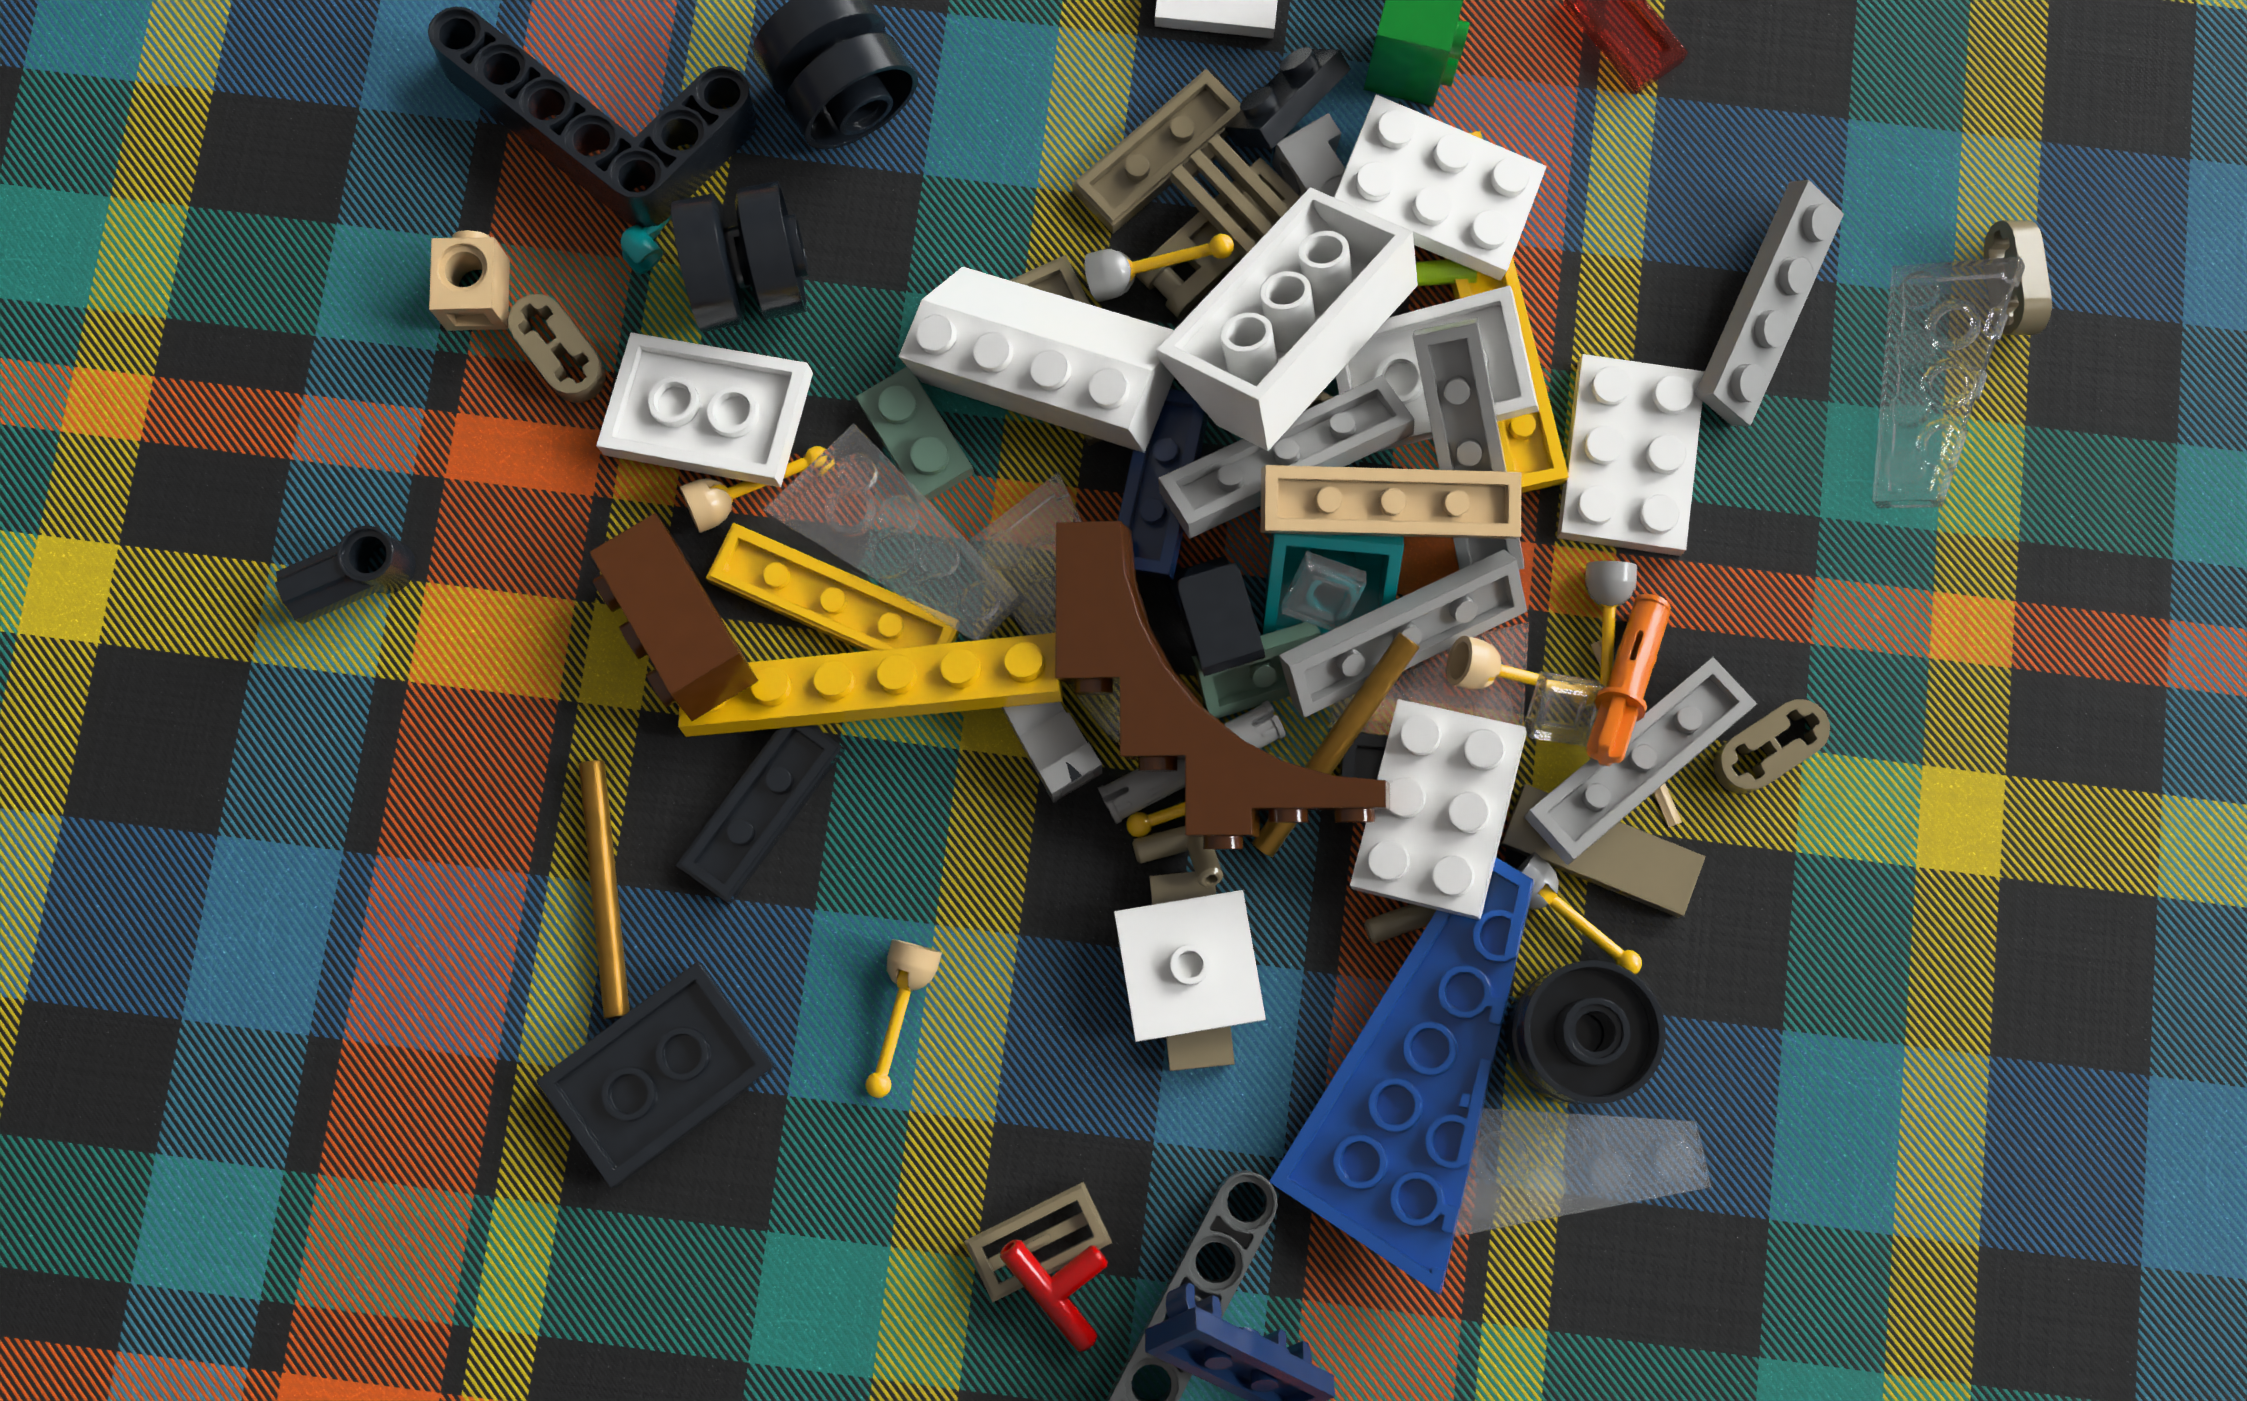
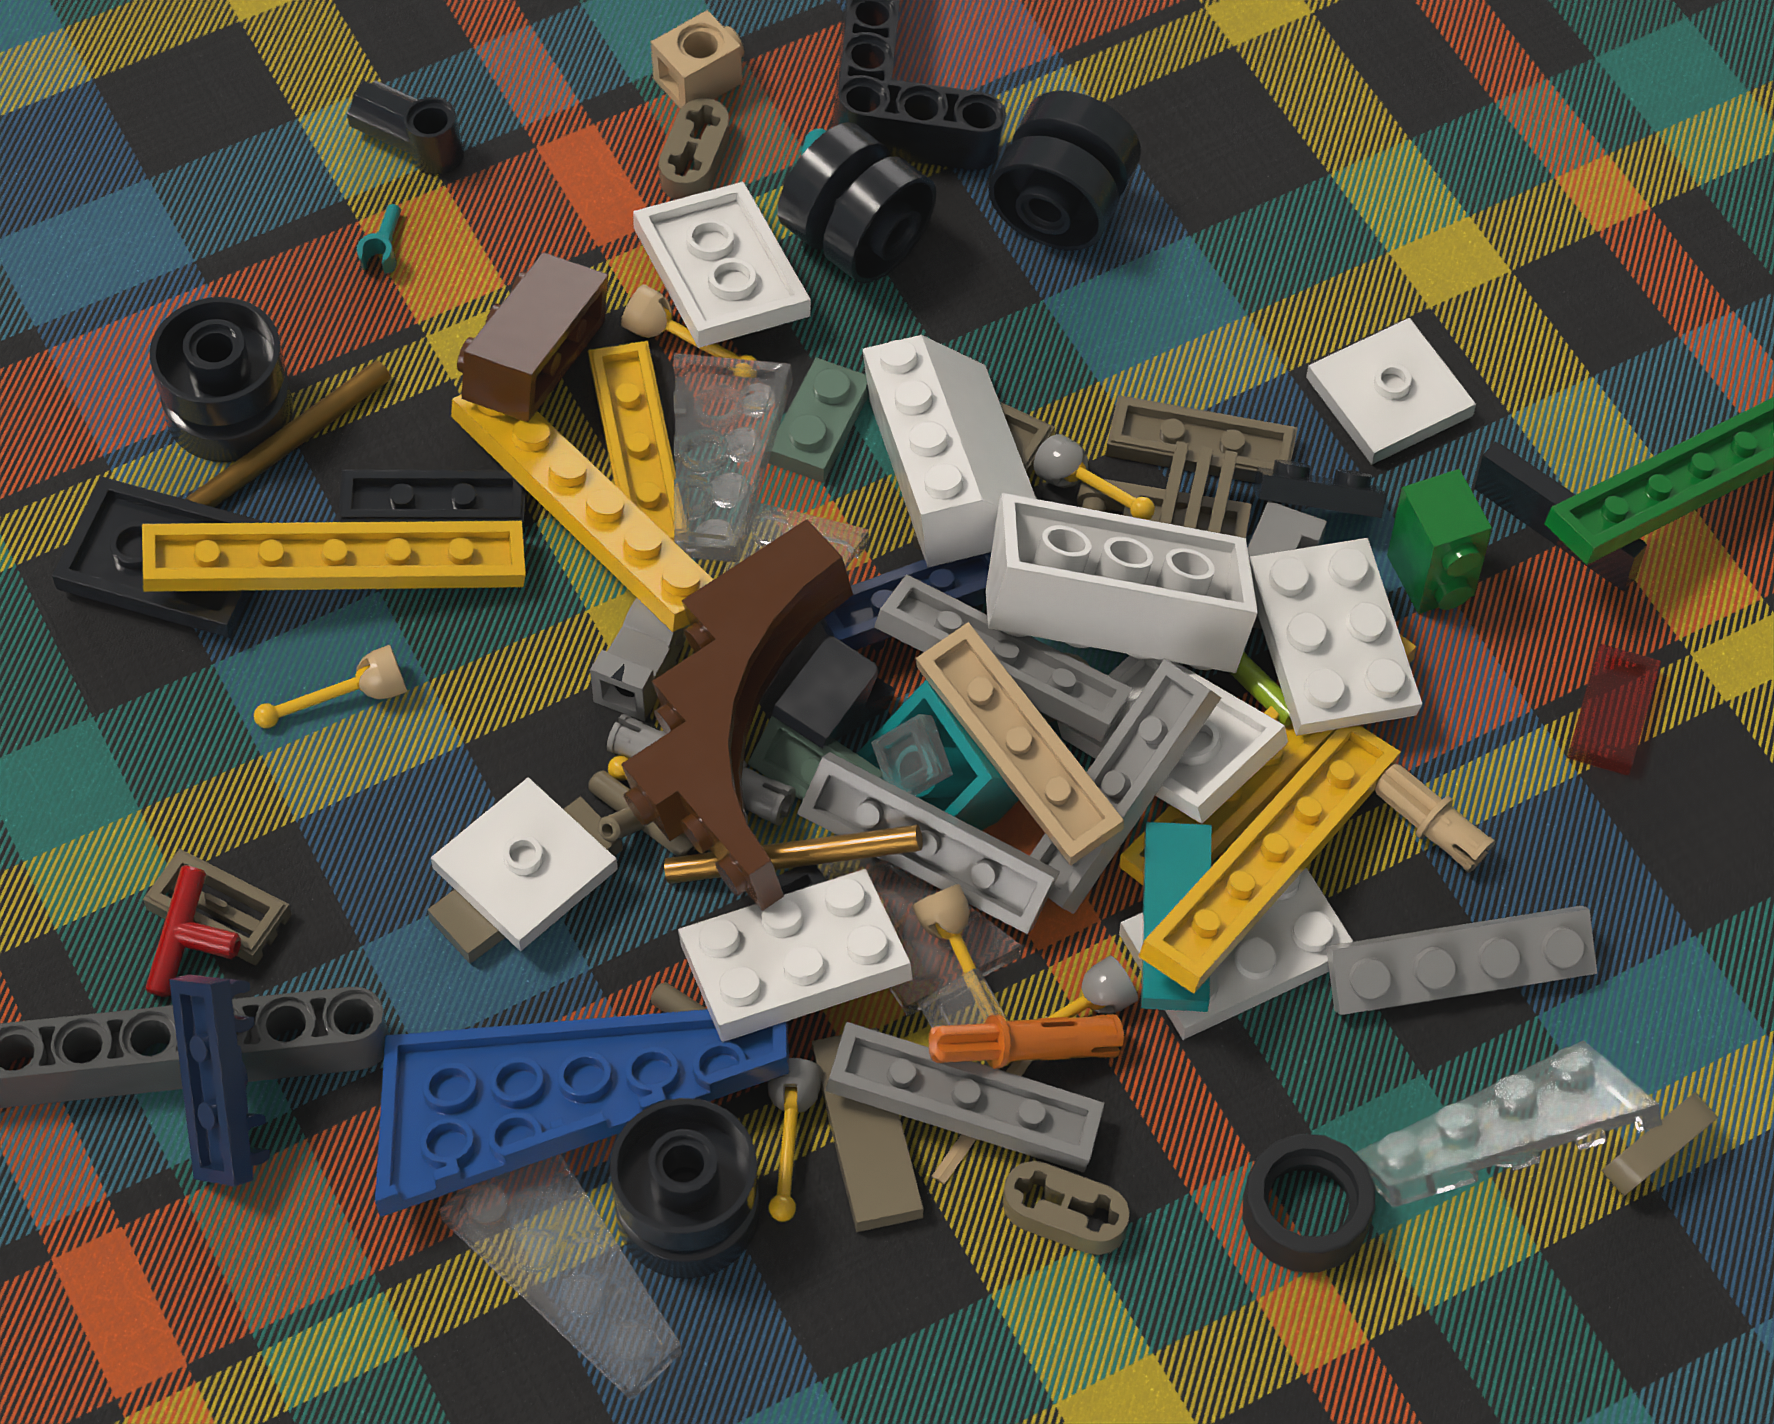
camera: 55 degrees right, 20 degrees down
(448, 673) = (381, 241): none -> teal hand
(513, 913) = (221, 377): none -> black wheel
(771, 937) = (332, 555): none -> yellow plate
(1601, 488) = (1173, 863): none -> teal tile
(1609, 384) = (1267, 857): none -> yellow plate
(1634, 230) = (1434, 817): none -> tan axle
(1932, 540) = (1326, 1157): none -> black tyre

